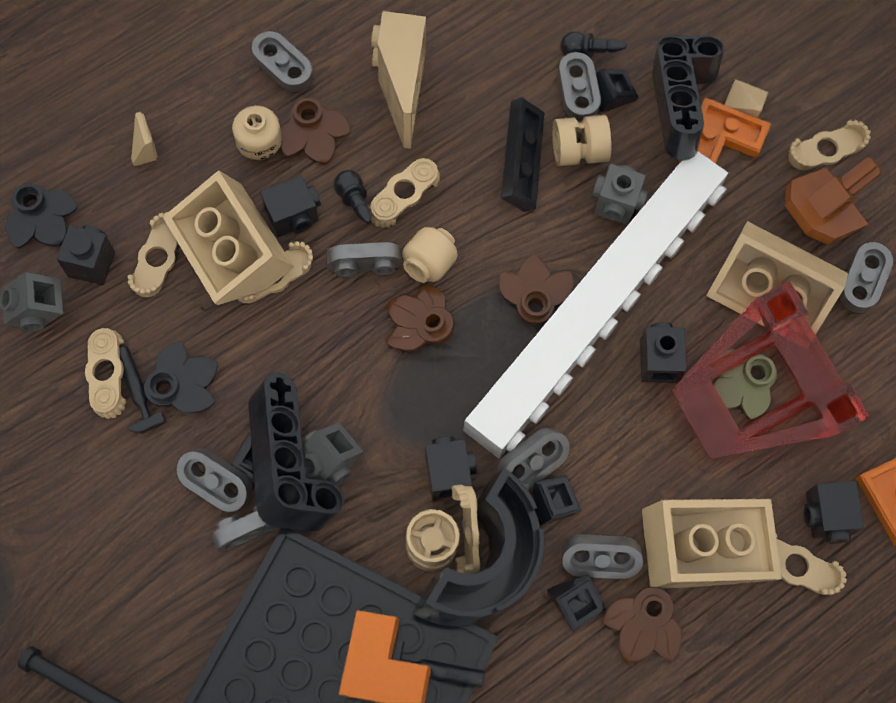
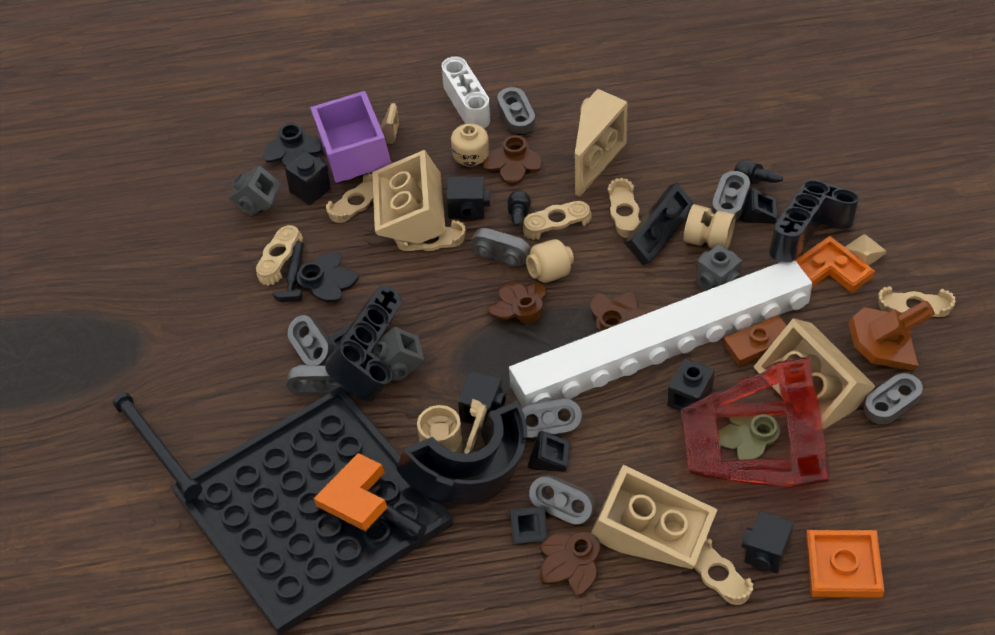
camera: 35 degrees right, 20 degrees down
(112, 180) = (350, 136): none -> medium lavender piece
(202, 41) = (465, 92): none -> white beam
(457, 131) = (621, 195): none -> tan piece
(696, 261) = (753, 341): none -> dark orange plate

